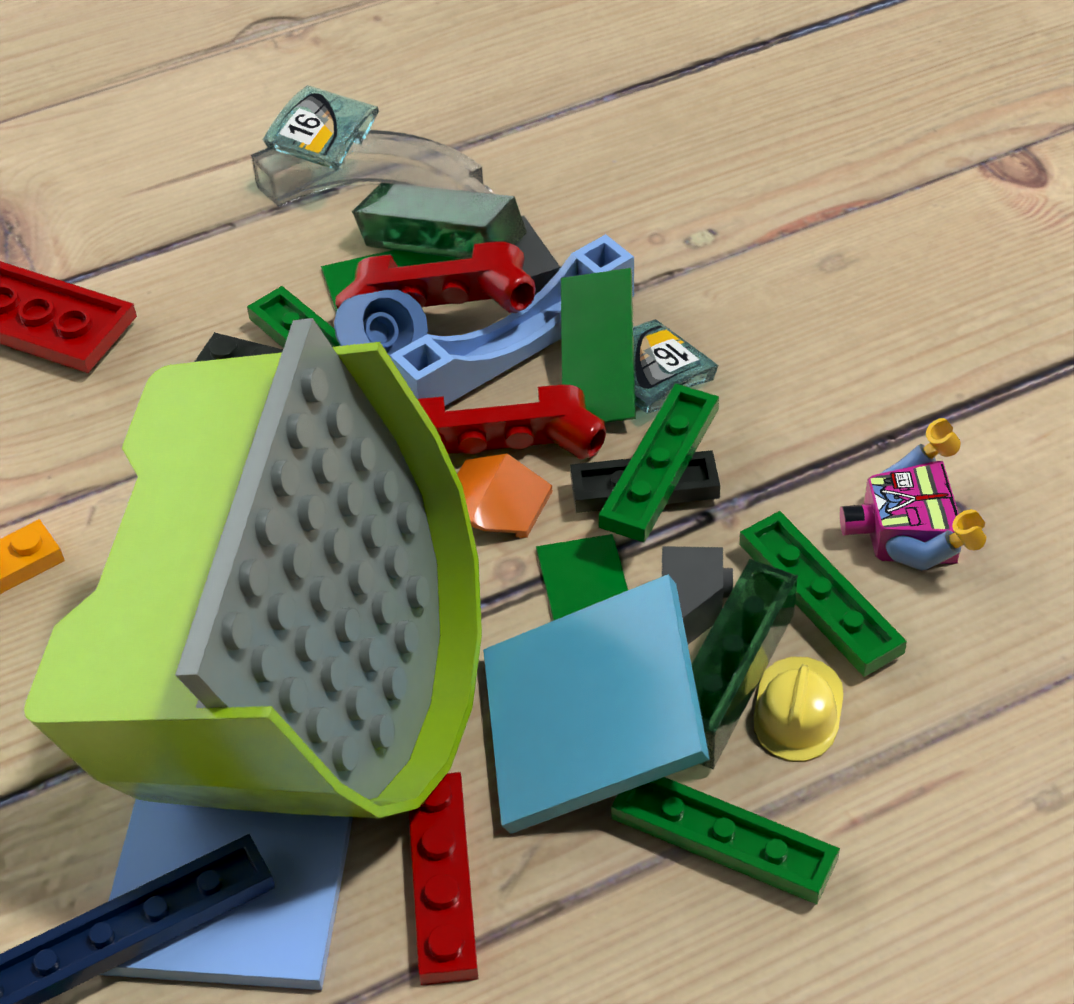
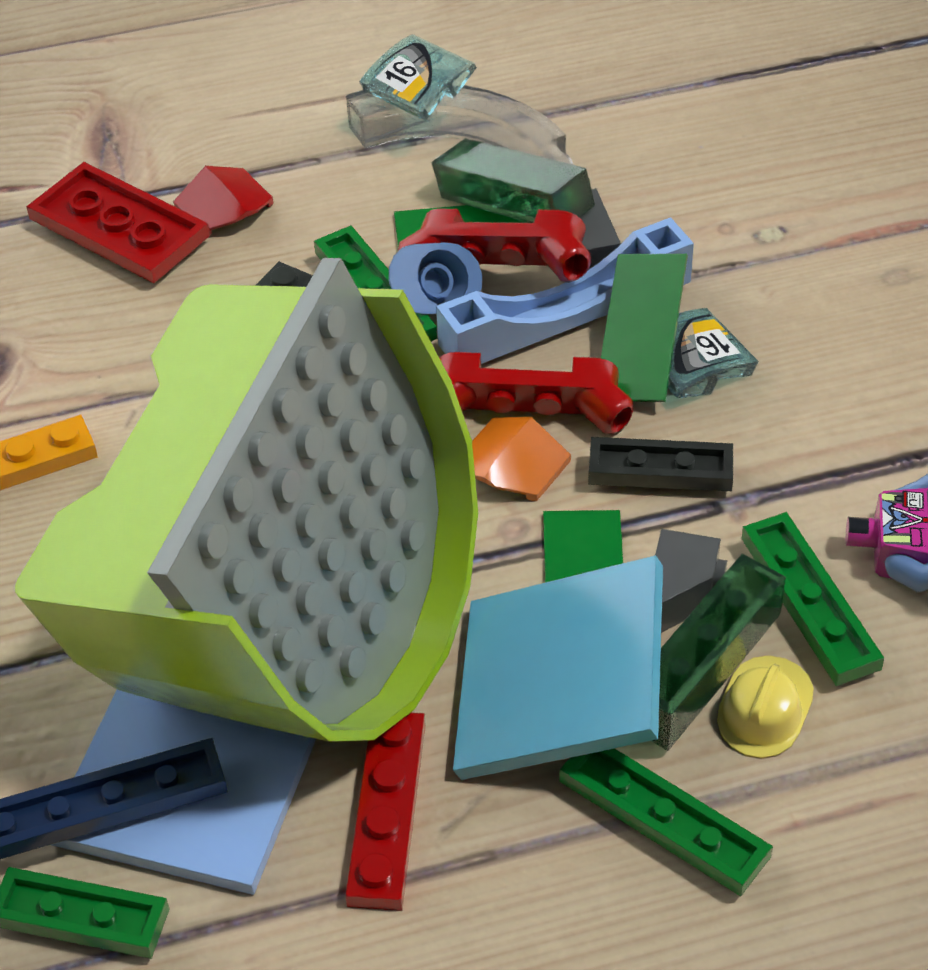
camera: 10 degrees right, 0 degrees up
(142, 274) = (222, 196): none -> slope
(658, 463) = (676, 447): green plate -> none

